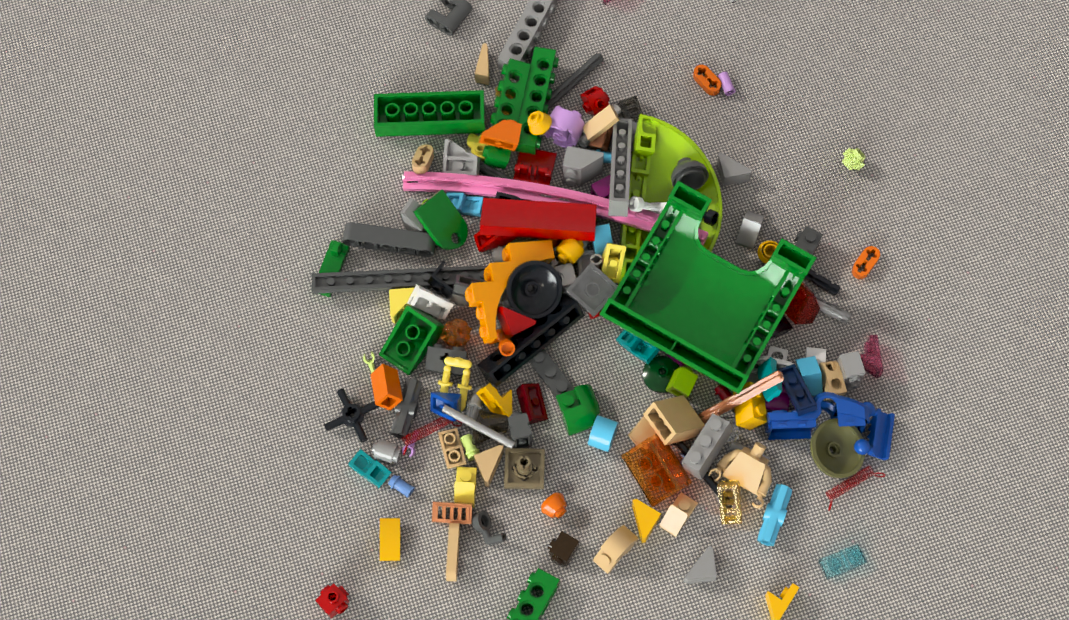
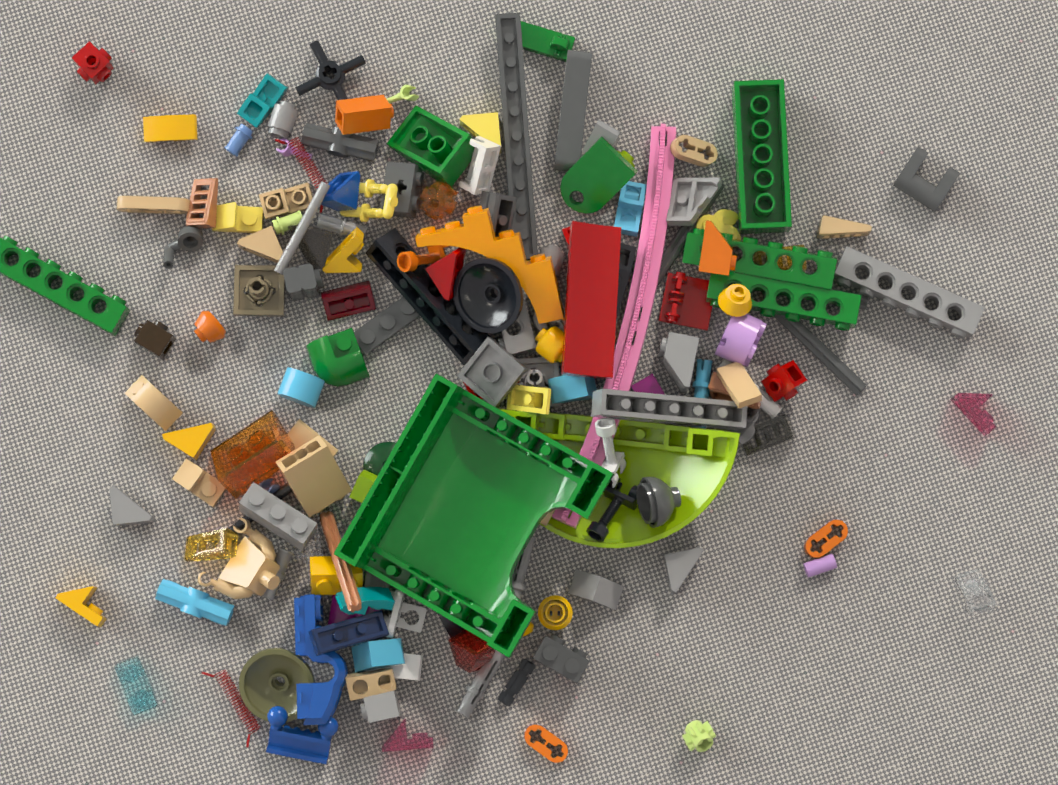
camera: 85 degrees right, 15 degrees up
(438, 285) = (500, 173): black bracket -> none

